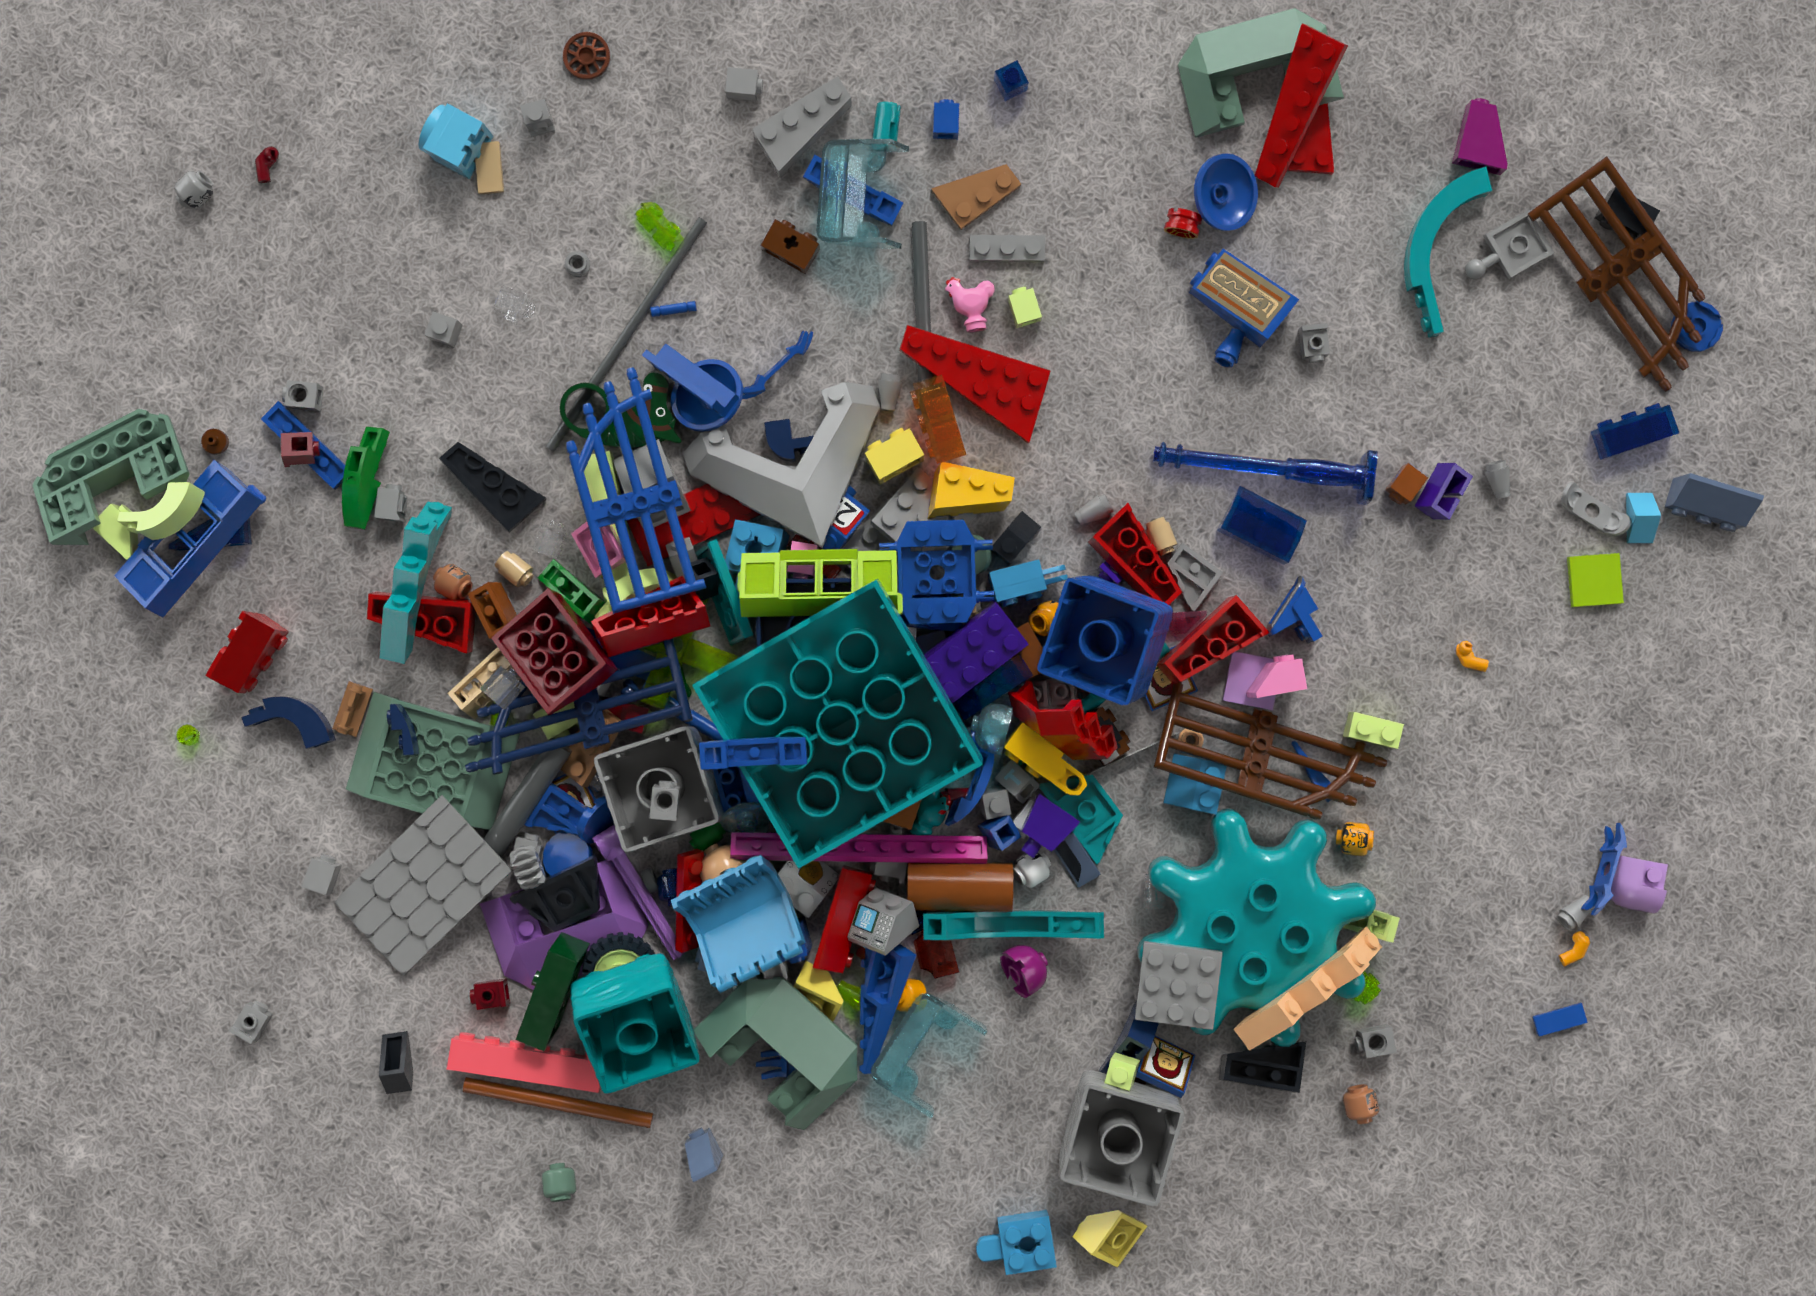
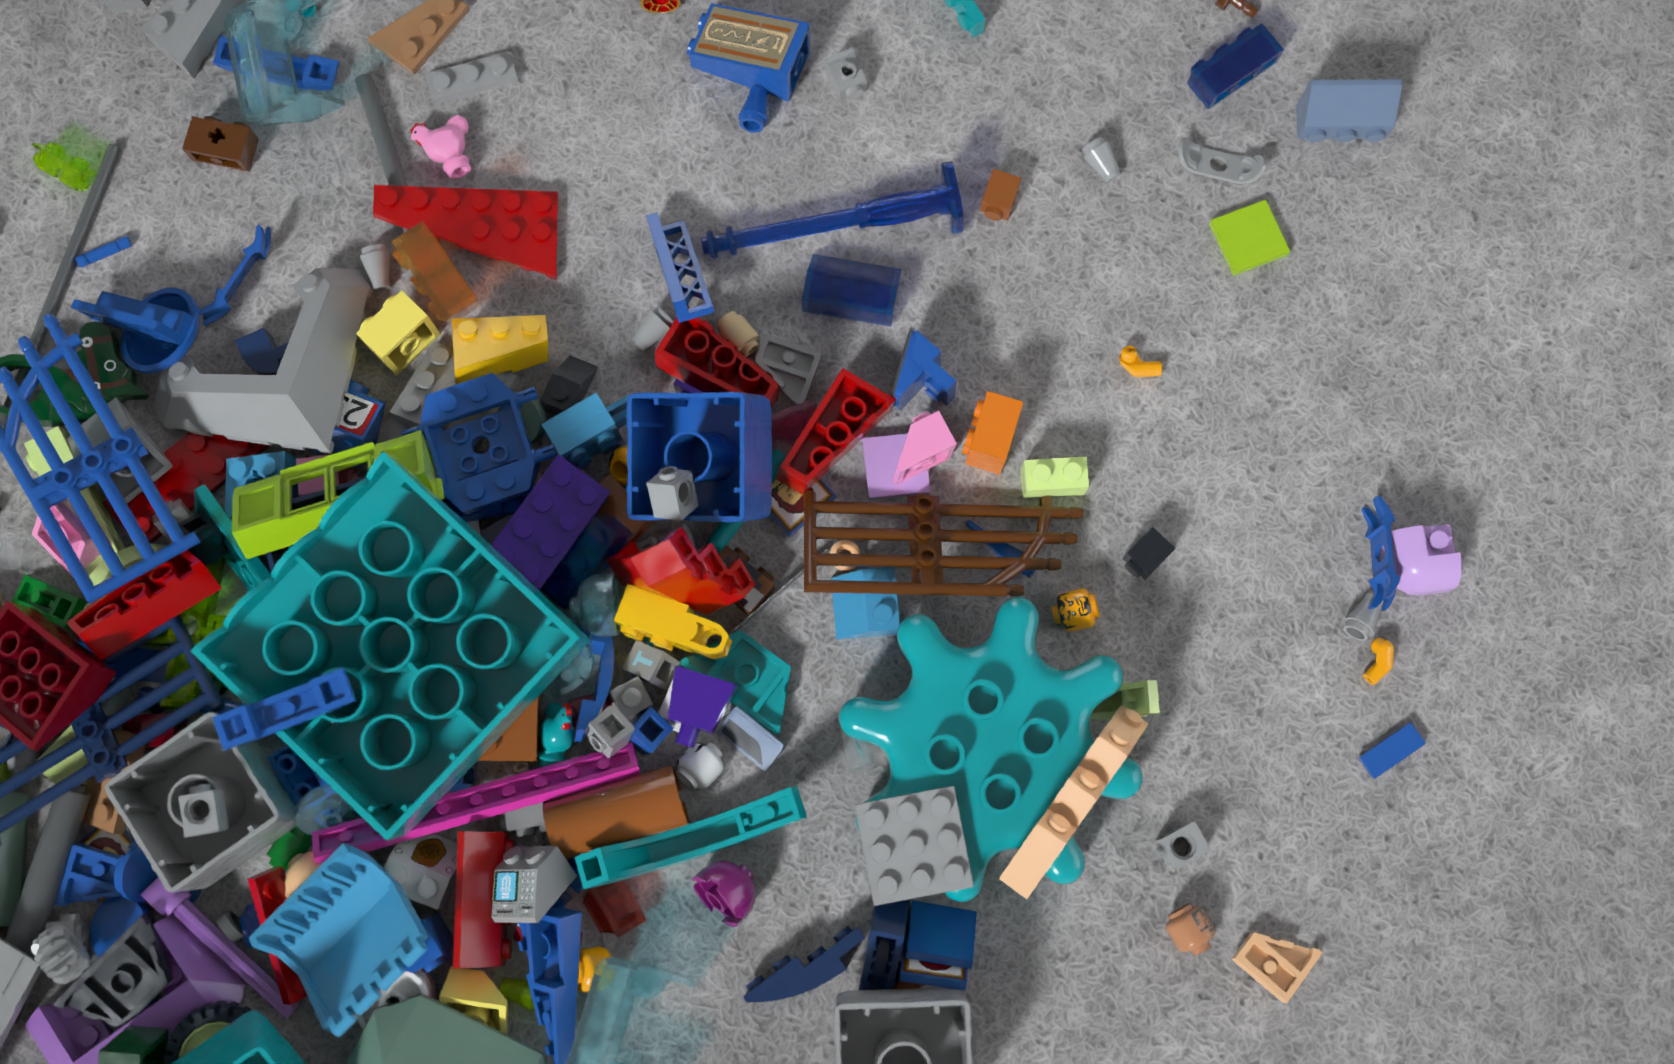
camera: 15 degrees left, 10 degrees down
(970, 830) = (605, 735): none -> light grey brick
(1024, 307) = (507, 132): yellowish green brick -> none
(1055, 1048) = (795, 978): none -> dark blue slope
(1078, 666) = (672, 493): none -> light grey brick
(1122, 1071) = (878, 977): yellowish green brick -> none
(1126, 471) = (670, 267): none -> fence
(1176, 1051) = (941, 934): none -> blue tile
(1266, 1067) = (1059, 920): black wedge -> none
(1337, 681) = (995, 426): none -> orange brick
(1370, 990) = (1151, 787): clear neon green gear -> none
(1416, 1148) = (1276, 963): none -> light nougat wing
(1425, 812) = (1147, 554): none -> black brick
(1445, 480) = (1044, 178): dark purple piece -> none
(1644, 517) = (1280, 153): medium azure slope -> none

